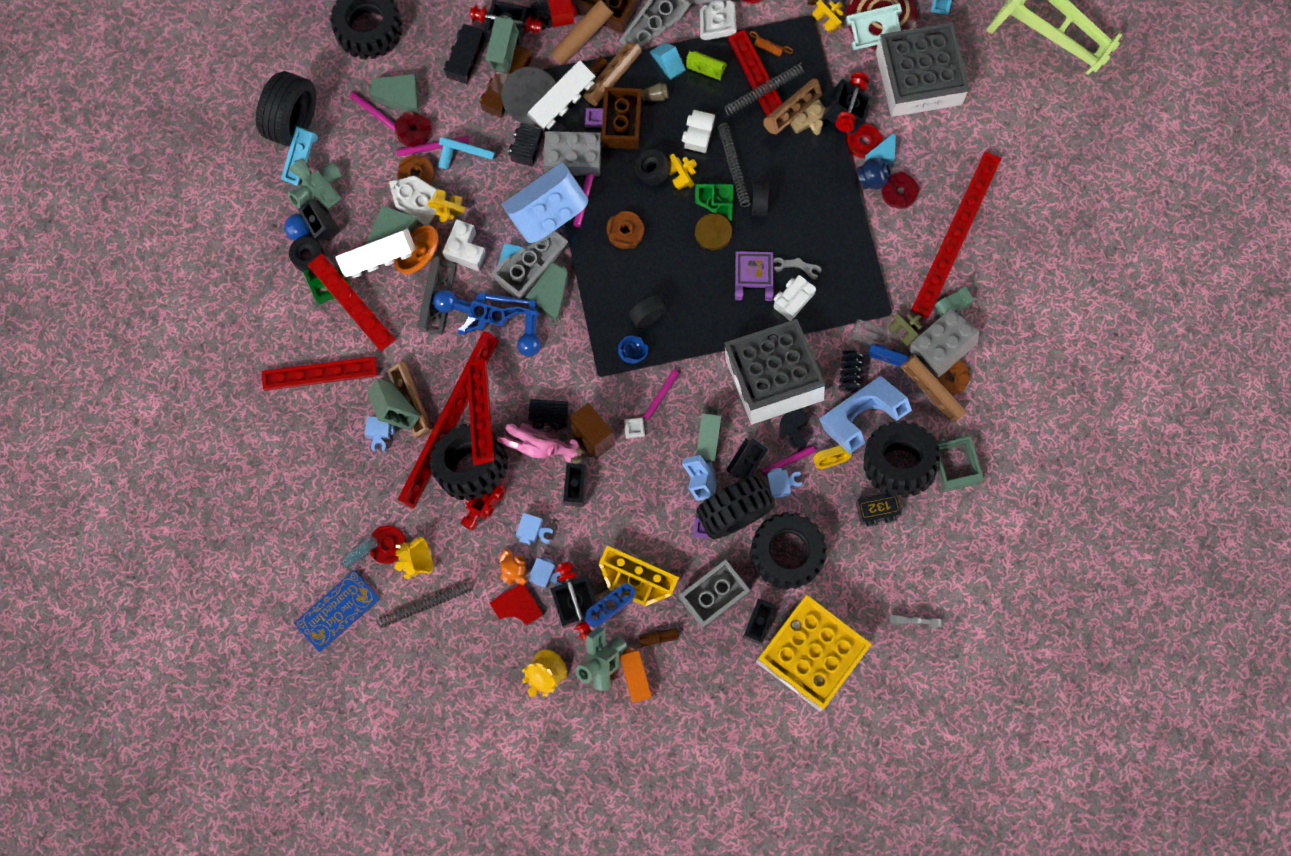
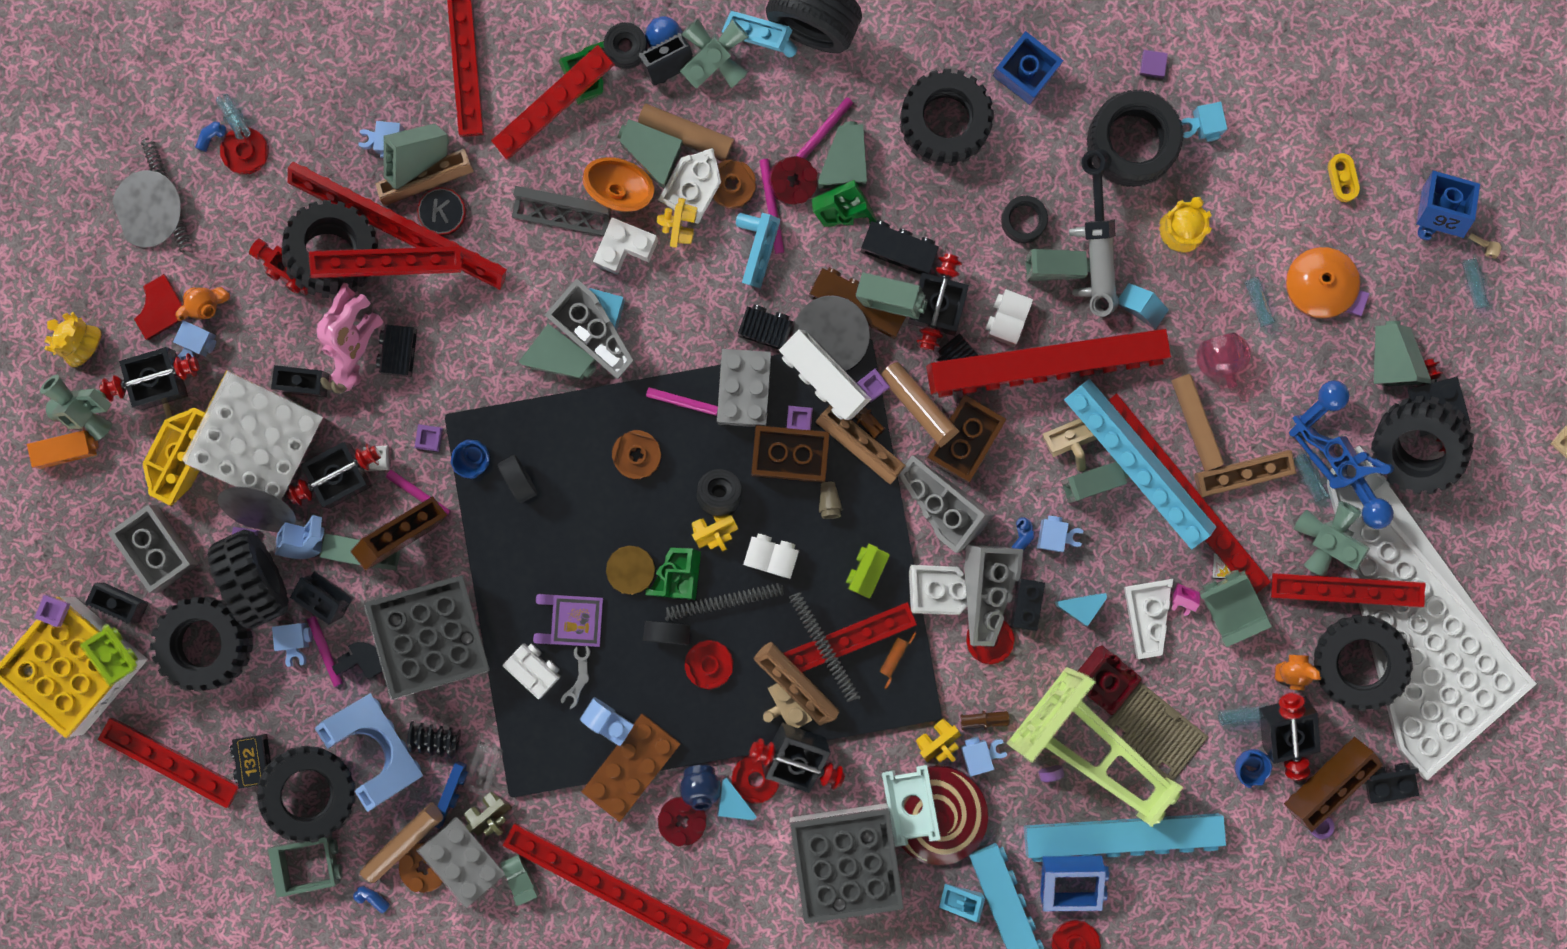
camera: 90 degrees right, 10 degrees up
(337, 611) = (165, 91): blue tile -> none
(372, 574) = (209, 132): none -> blue arm
(375, 253) = (611, 132): white brick -> none
(380, 197) = (690, 133): none -> medium nougat brick
(414, 558) = (217, 182): yellow hair -> none
(432, 94) = (842, 206): none -> green slope
(434, 619) = (147, 208): none -> flat silver sticker
(436, 387) = (441, 211): none -> black tile
(527, 344) = (489, 326): blue piece -> none
(530, 529) = (251, 326): light blue brick -> none
(546, 203) = (667, 352): light blue brick -> none
(565, 65) = (873, 385): none -> medium lavender tile
(592, 431) = (358, 403): reddish brown brick -> none
(613, 596) = (145, 438): blue beam -> none
(616, 389) = (428, 438): none -> medium lavender tile
(621, 512) = (251, 436): none -> white piece
(649, 452) = (335, 475): none -> black brick
(658, 637) = (110, 479): reddish brown axle -> none
(668, 59) = (879, 519): medium azure slope -> none
(678, 509) = (255, 508): none -> flat silver sticker
(694, 394) = (398, 533): none -> reddish brown brick
(769, 658) = (52, 610): none -> medium lavender tile
(782, 174) = (709, 664): none -> red tile
(802, 606) = (110, 655): none -> lime bracket
(829, 240) = (605, 721): none -> light blue brick
(831, 457) = (321, 696): yellow plate -> none
(862, 225) = (631, 768): none -> dark orange plate
(884, 576) = (169, 762): none -> red plate
(899, 620) = (113, 775): light grey piece -> none
(976, 412) = (374, 898): none -> blue arm

